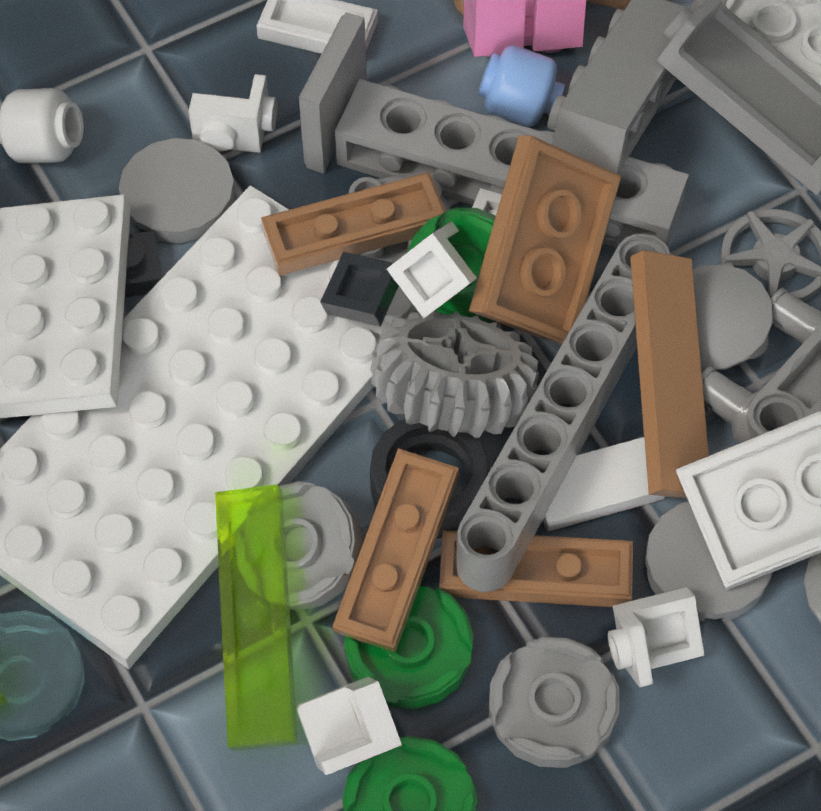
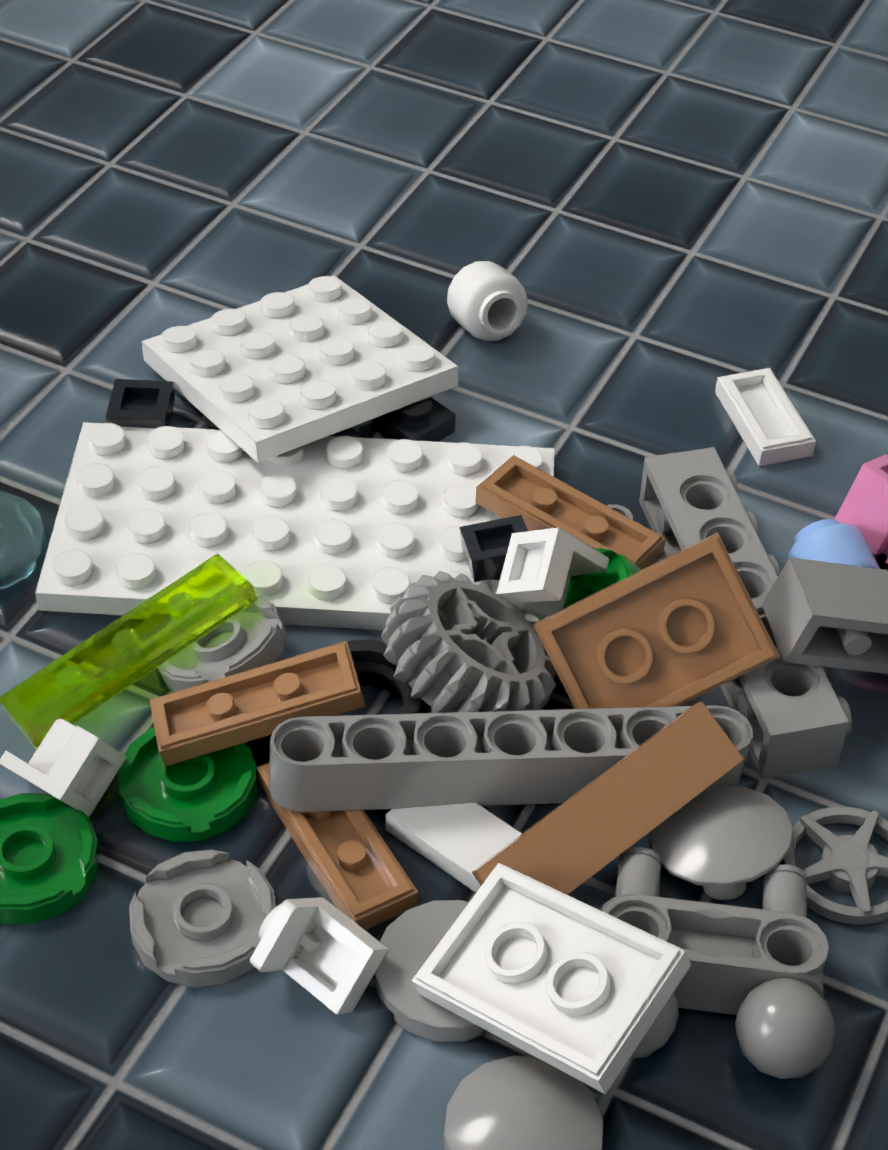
camera: 55 degrees right, 15 degrees down
(177, 189) = (511, 409): light grey tile -> none
(233, 121) = (608, 411): white bracket -> none
(330, 90) = (679, 422): light grey tile -> none

